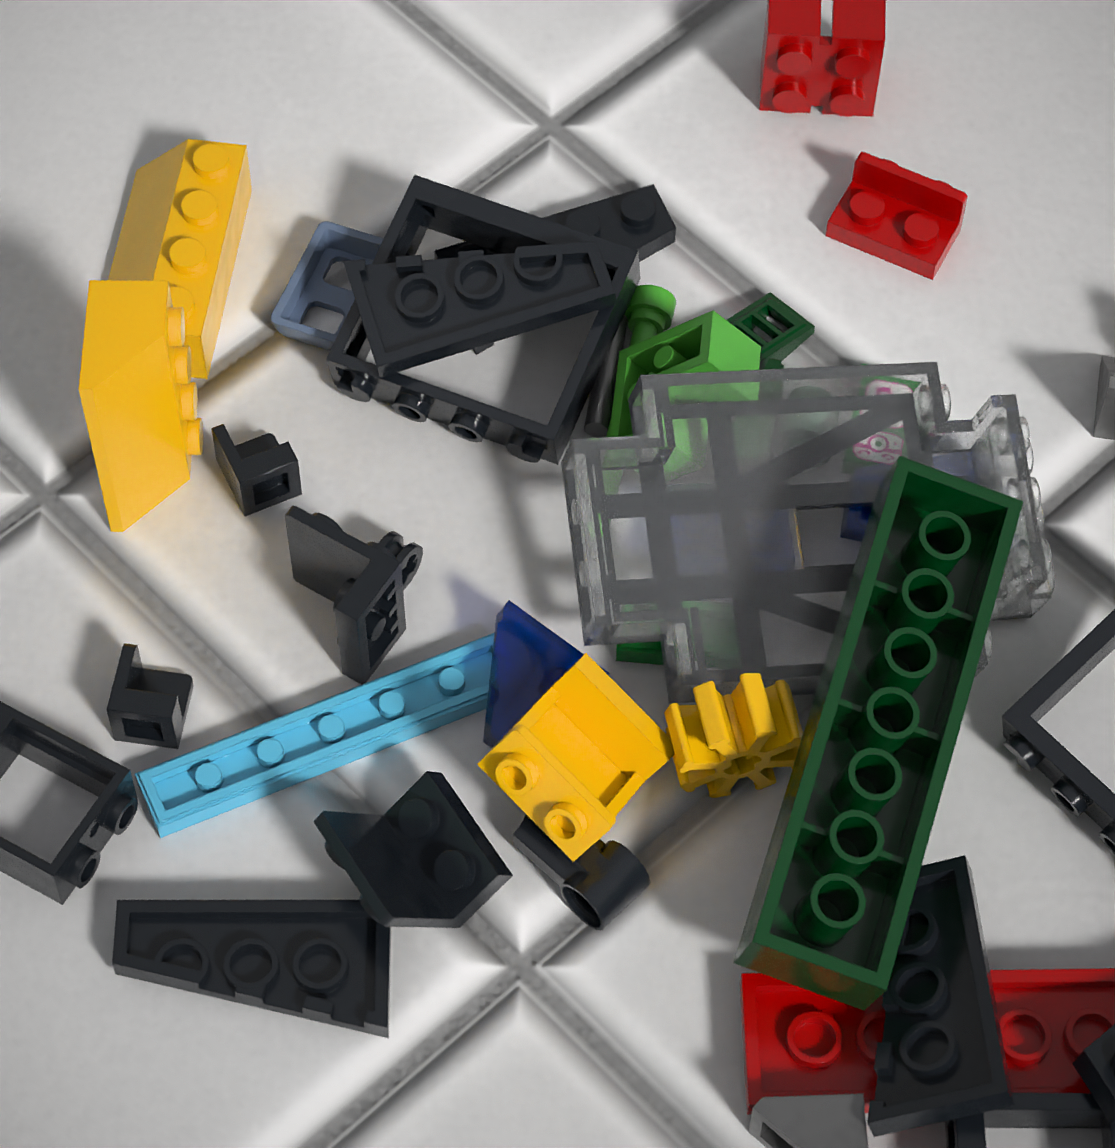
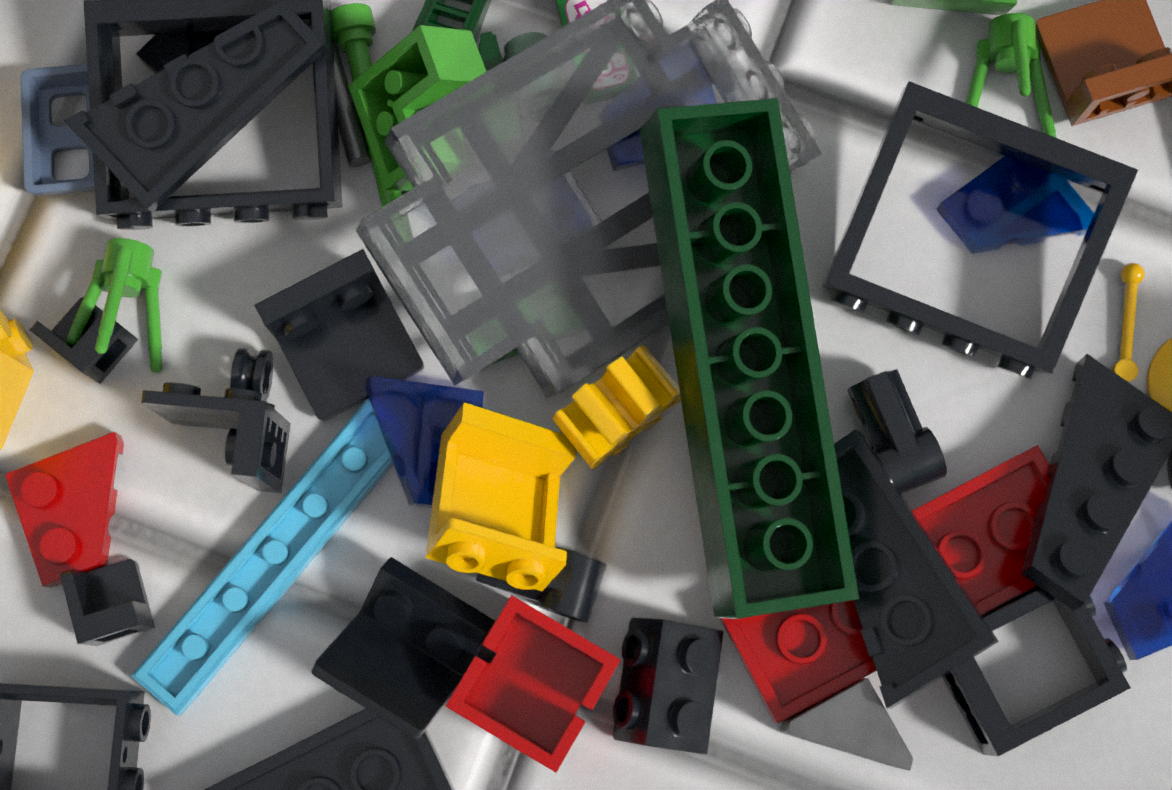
camera: 25 degrees left, 20 degrees up
(159, 602) = (68, 507): none -> red wing
(320, 428) = (122, 274): none -> bright green plant
(496, 550) = (340, 333): none -> black bracket
(529, 955) = (533, 683): none -> red piece
(656, 1022) = (667, 685): none -> black bracket
(1009, 892) = (895, 433): none -> black piece

